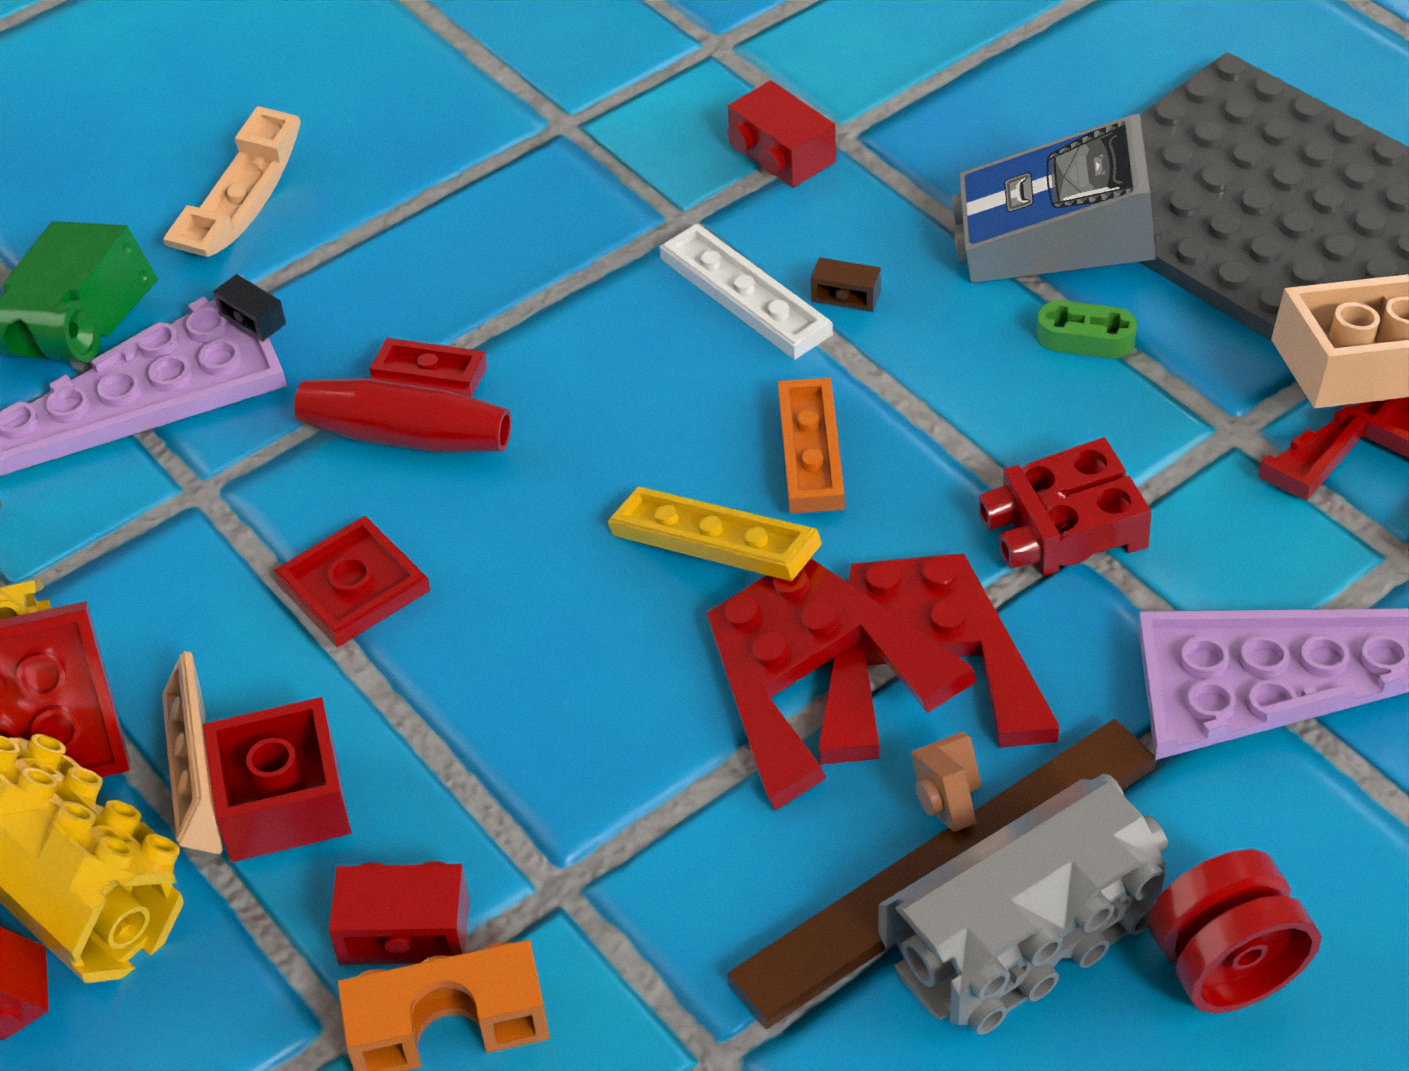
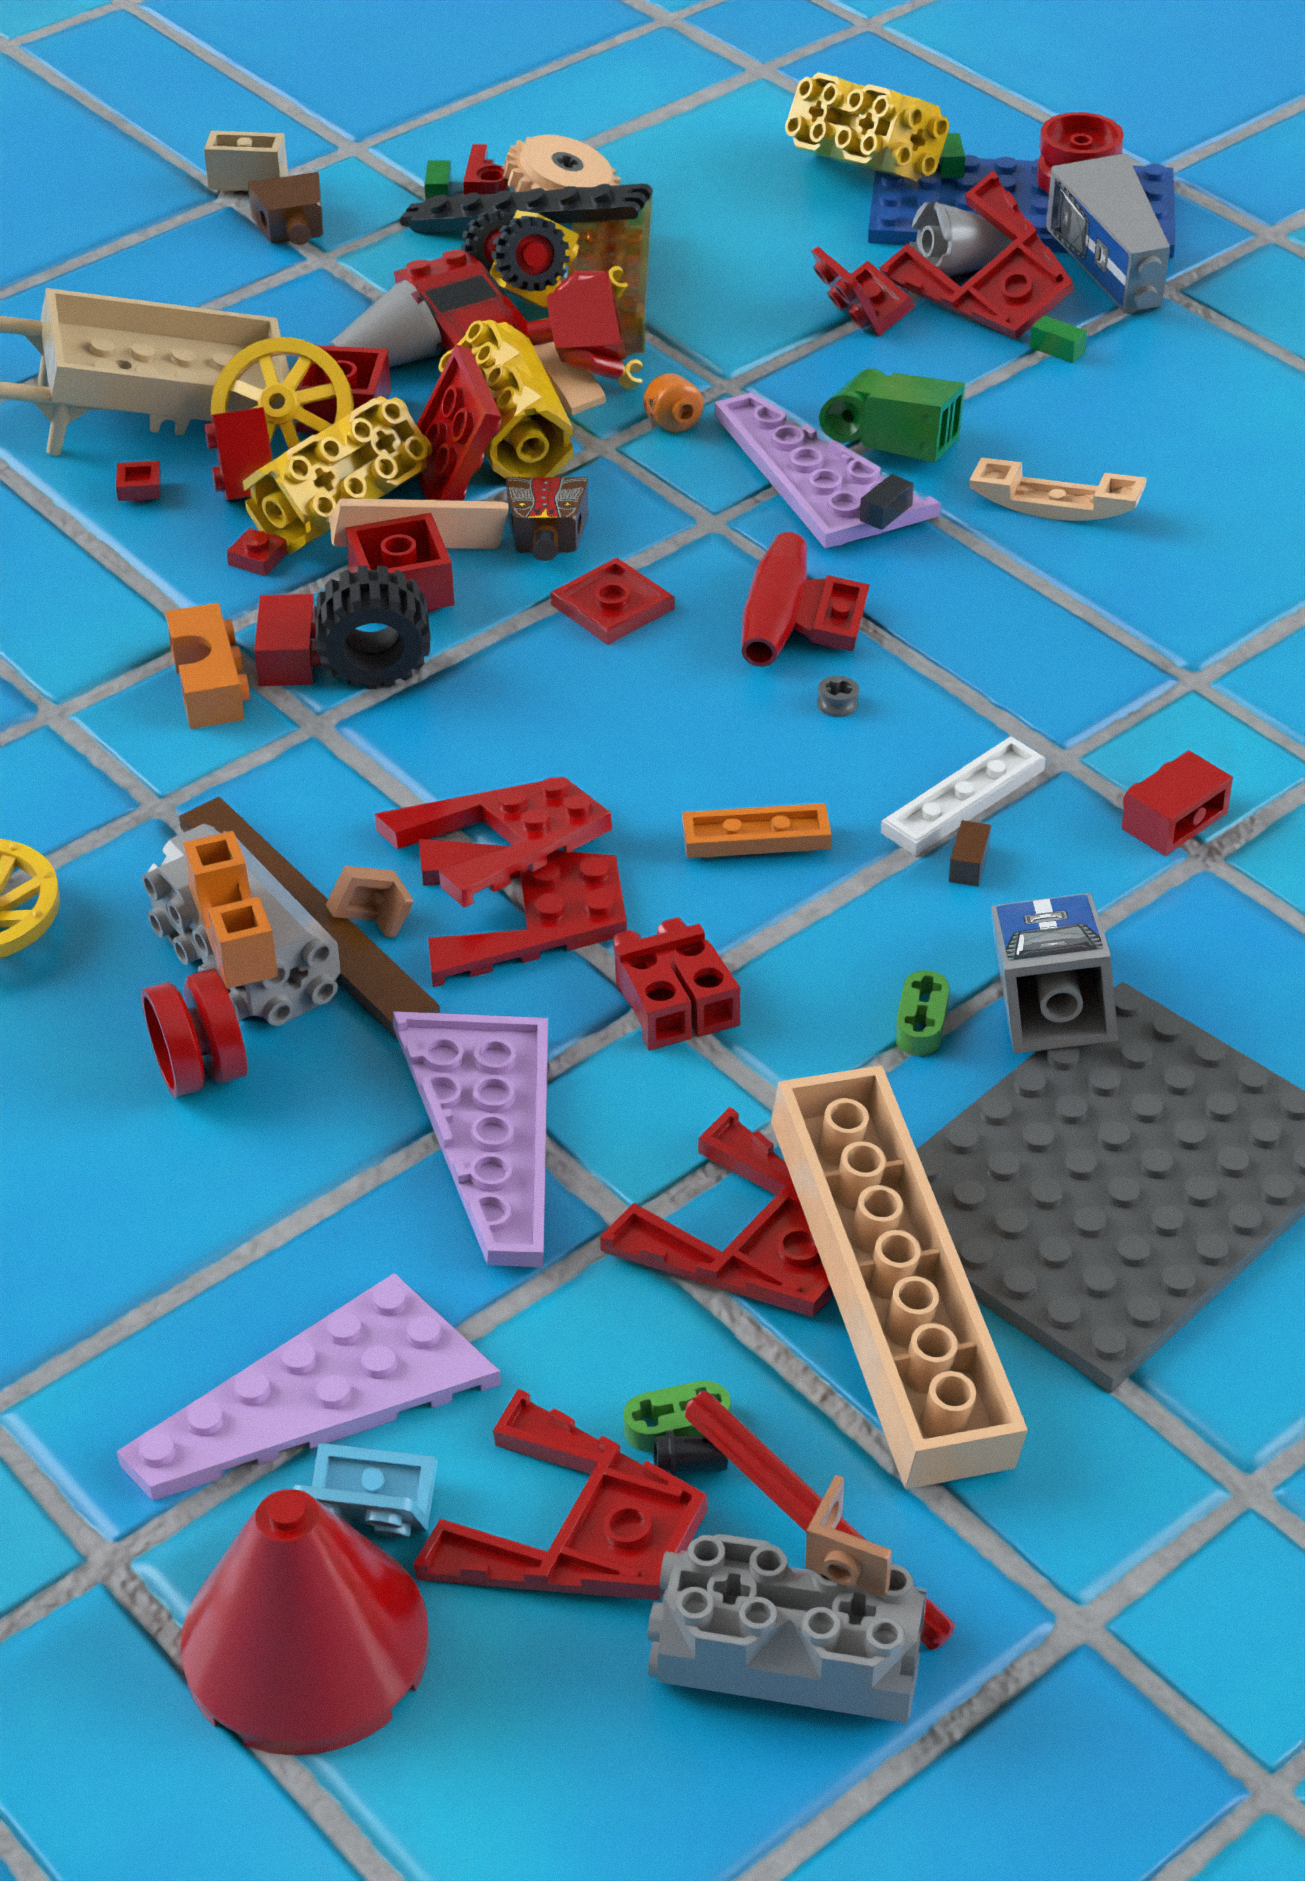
camera: 85 degrees right, 5 degrees down
(163, 978) = (257, 552): none -> red plate
(173, 618) = (547, 514): none -> reddish brown torso
(439, 784) = (368, 599): none -> black tyre
(570, 391) = (838, 696): none -> dark grey bush
(715, 533) = (638, 768): yellow tile -> none
(1179, 819) = (230, 916): none -> orange arch

